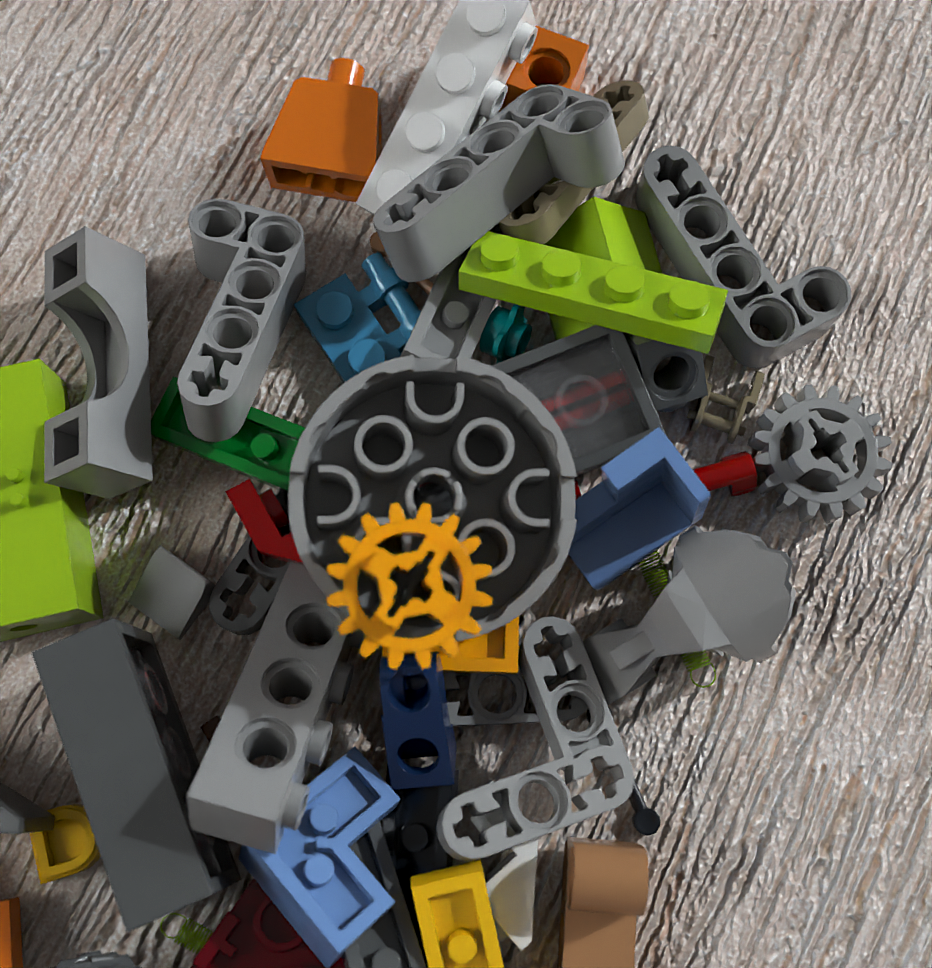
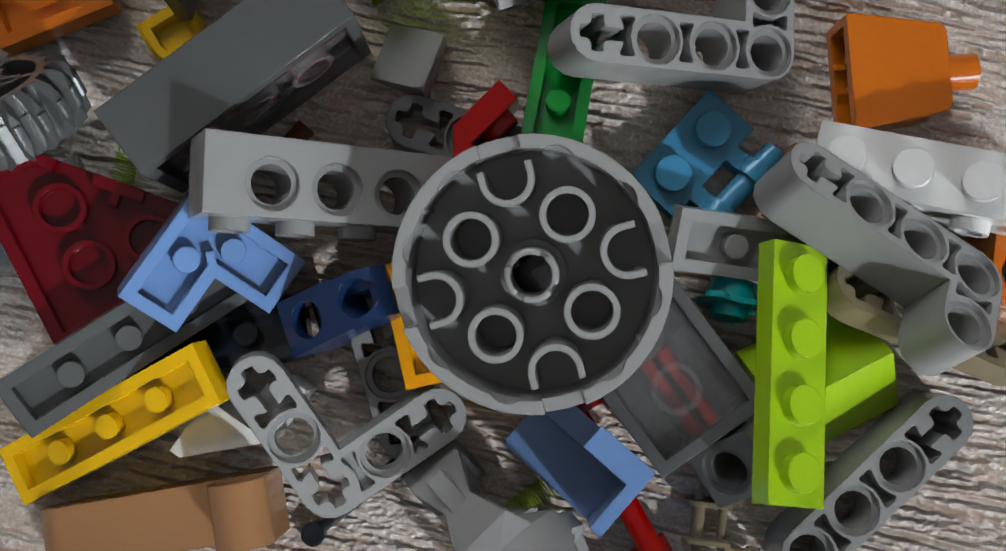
camera: 70 degrees right, 10 degrees up
(438, 606) = (423, 305): light orange gear -> none

